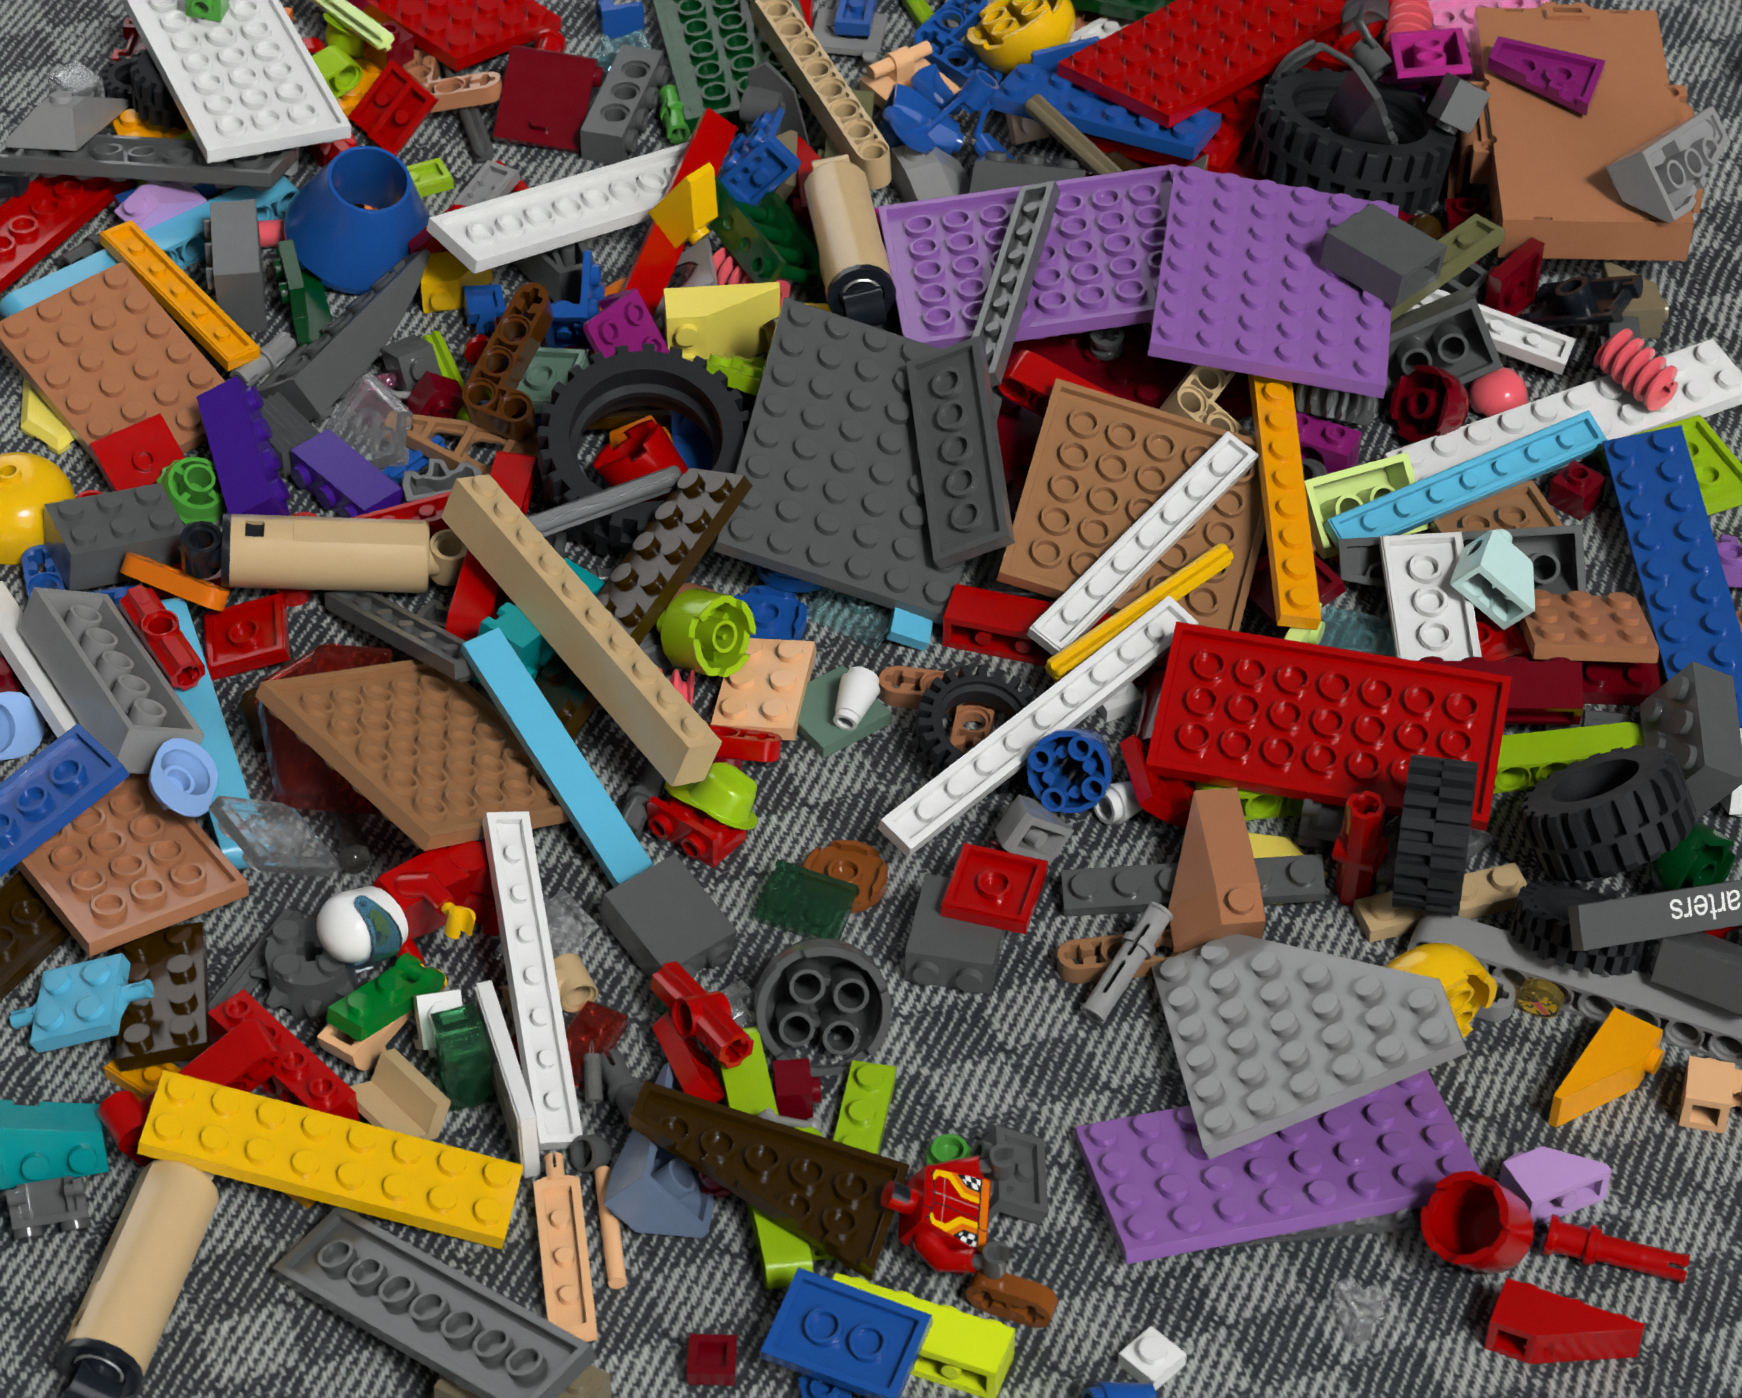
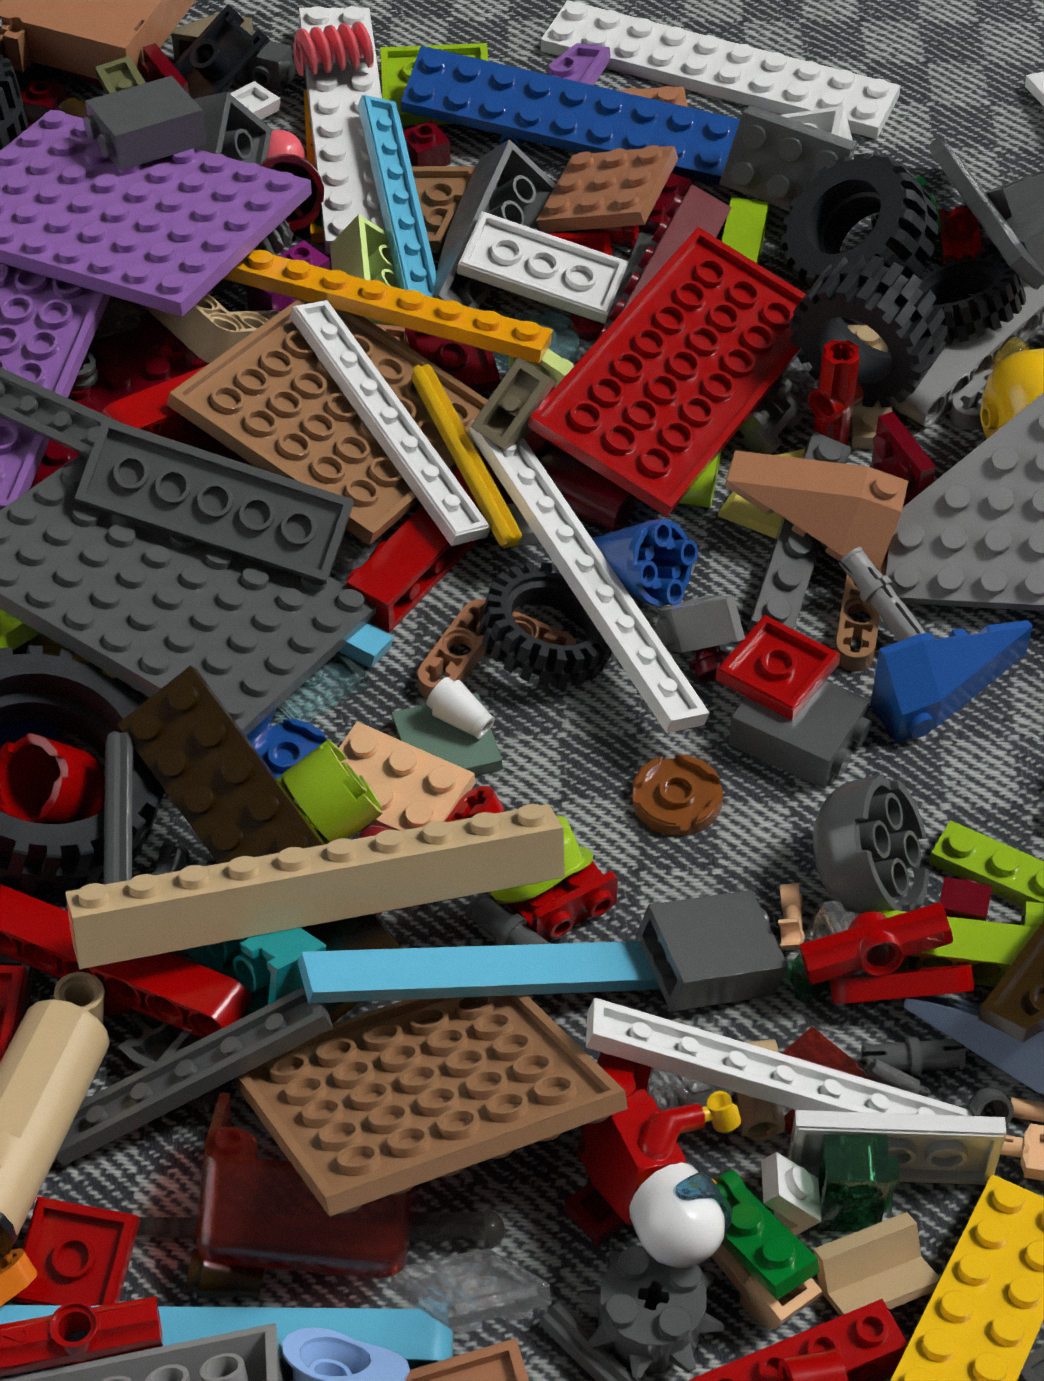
camera: 70 degrees left, 5 degrees up
(716, 982) = (791, 924): none -> light nougat arm
(792, 1122) = (999, 912): light grey hinge -> none
(806, 902) = (713, 831): clear green plate -> none
(1049, 1018) = (931, 678): none -> blue wedge
(1159, 795) = (687, 514): red slope -> none
(1192, 604) = (512, 403): none -> dark tan slope
(1312, 919) = (901, 456): none -> dark red plate
(1496, 578) = (541, 209): light aqua torso -> none

